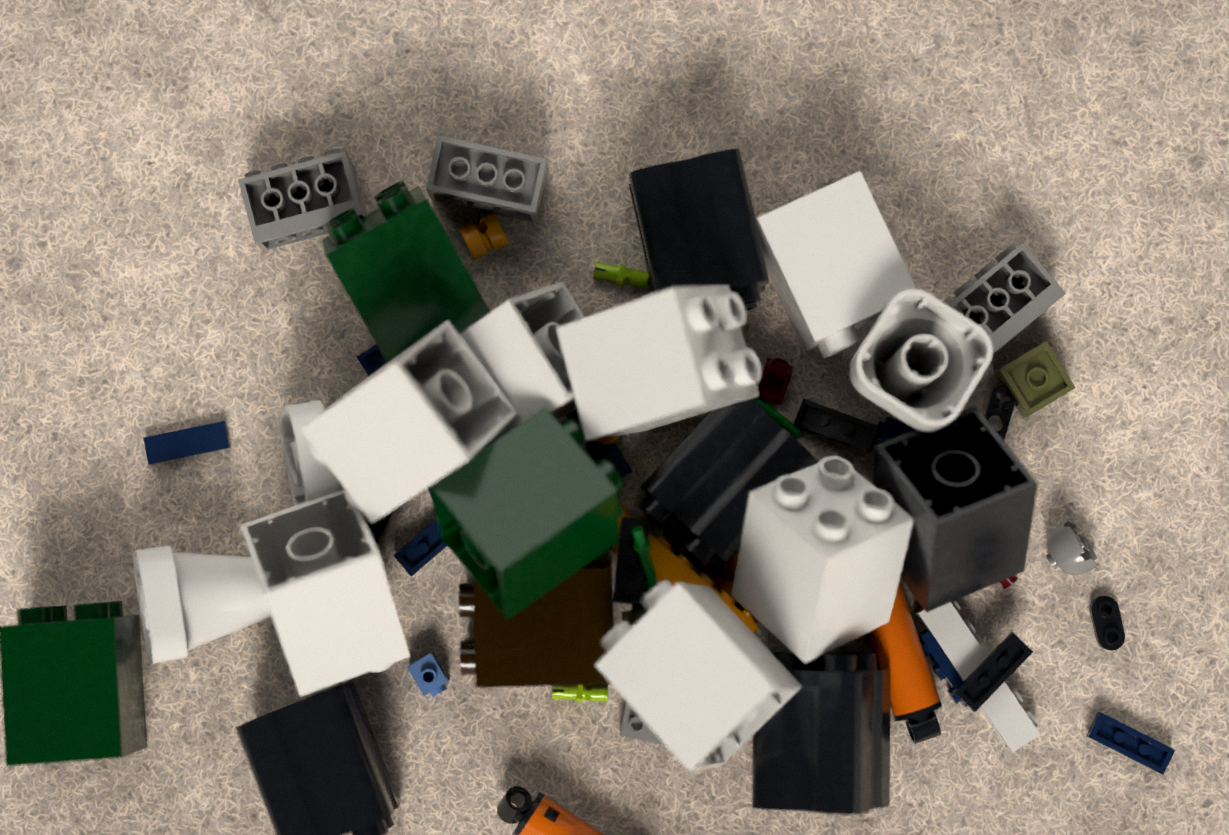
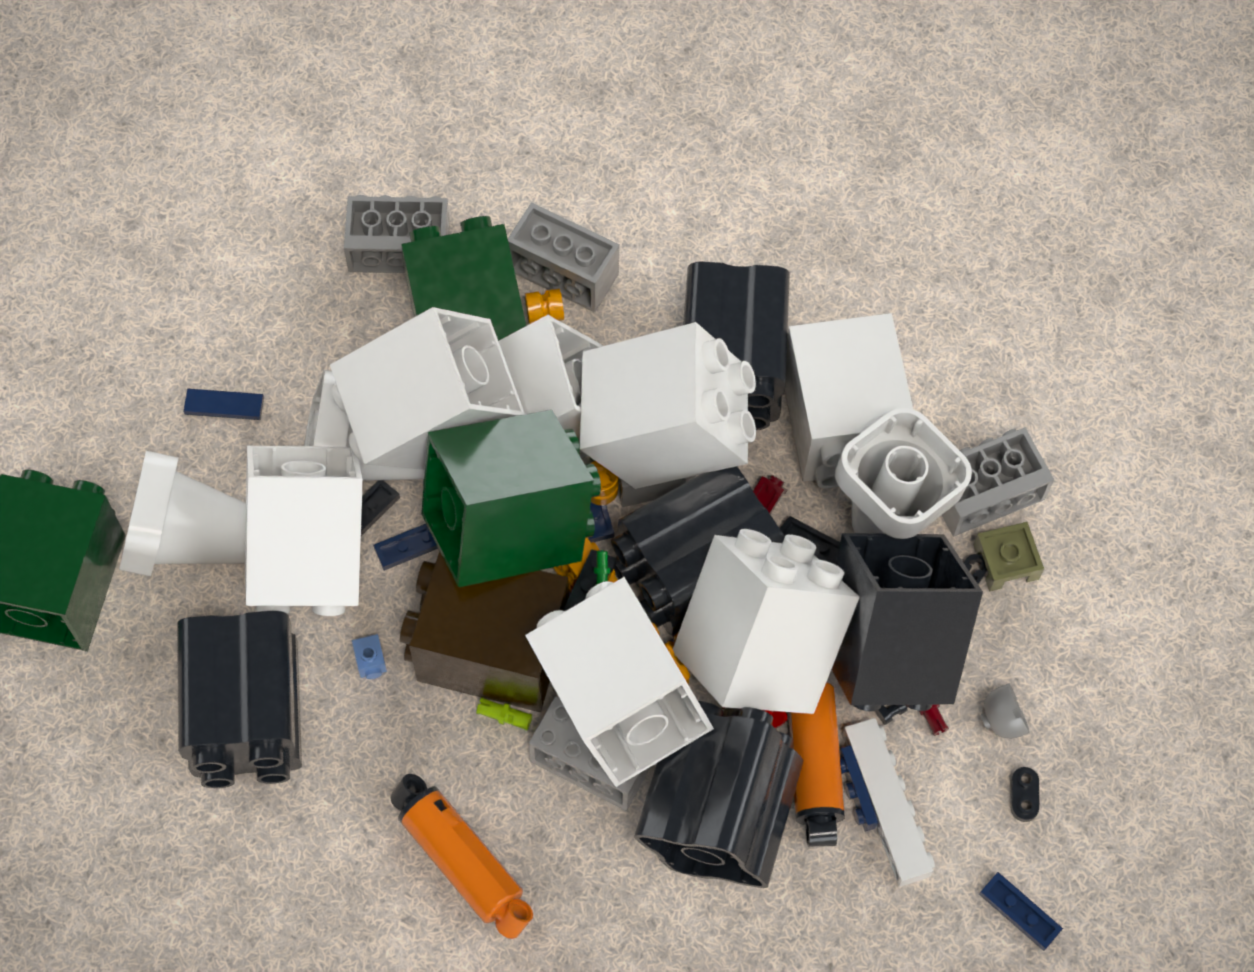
camera: 15 degrees right, 20 degrees down
(993, 671) = (901, 796): black plate -> none

